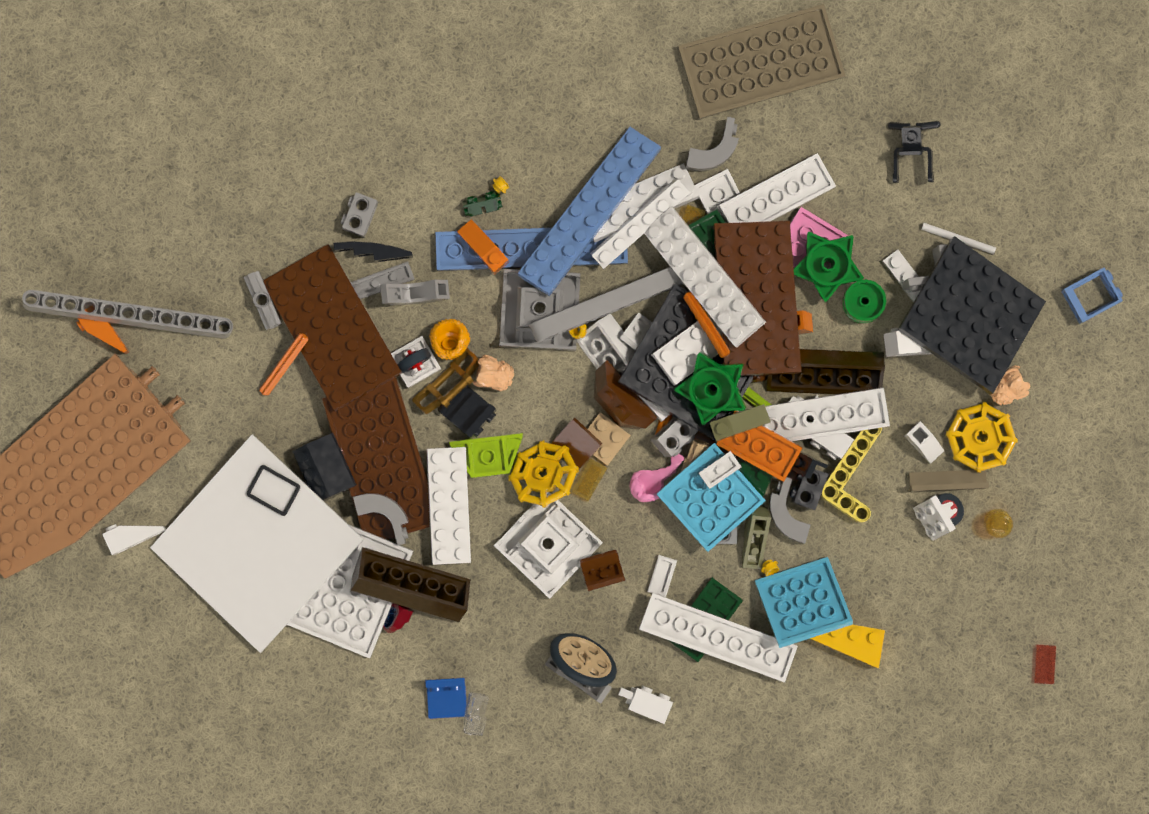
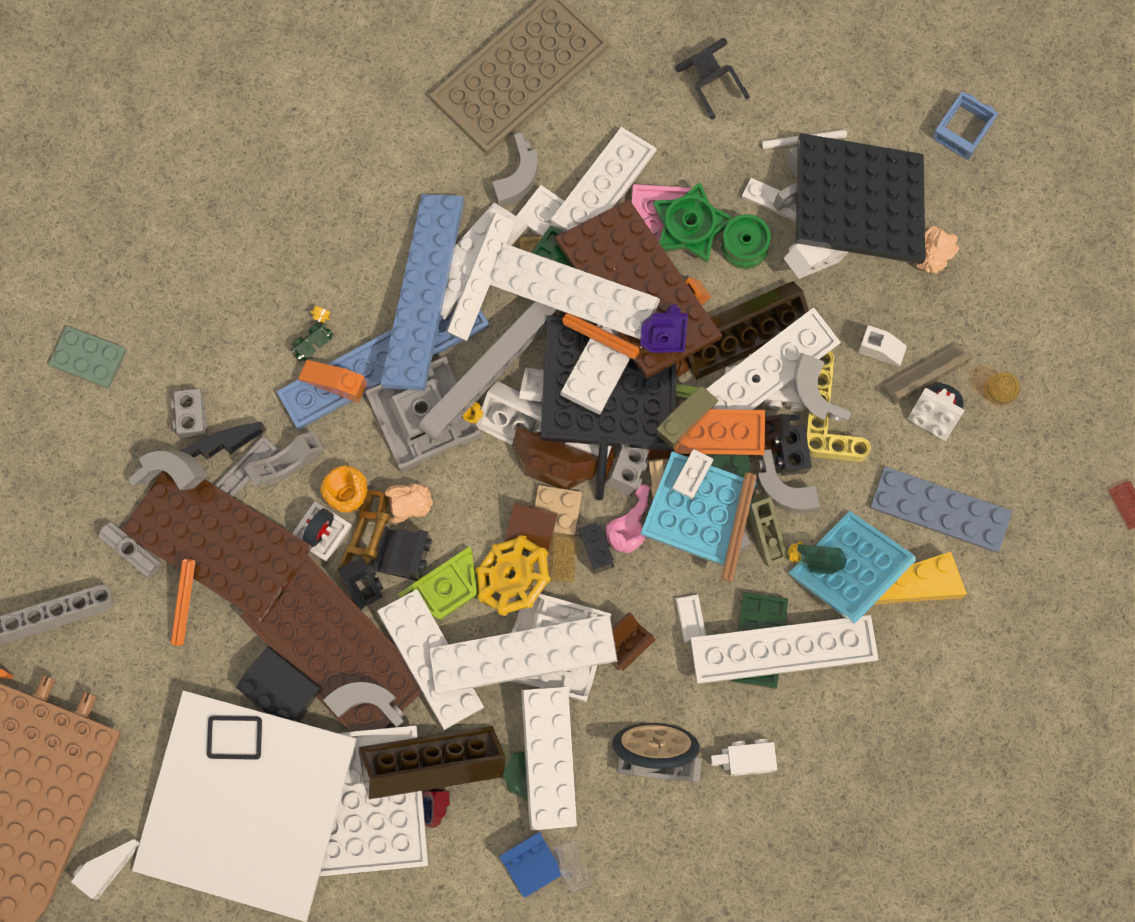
camera: 20 degrees left, 10 degrees down
(302, 125) = (87, 357): none -> sand green plate
(330, 252) = (180, 465): none -> light grey arch
(426, 411) = (356, 571): none -> black window
(476, 627) = (516, 775): none -> clear green slope
(499, 626) = (548, 758): none -> white plate
(519, 541) = (523, 654): none -> white plate
(618, 485) = (596, 547): none -> black window
(654, 426) = (601, 469): none -> black bar
(709, 401) = (642, 411): green plate -> none
(733, 528) = (738, 527): none -> medium nougat axle
(756, 350) = (665, 331): none -> dark purple piece
(783, 584) = (821, 559): none -> clear green slope
(846, 441) = (806, 387): none -> light grey arch
(898, 592) = (941, 509): none -> sand blue plate
(975, 446) = (936, 325): yellow plate -> none

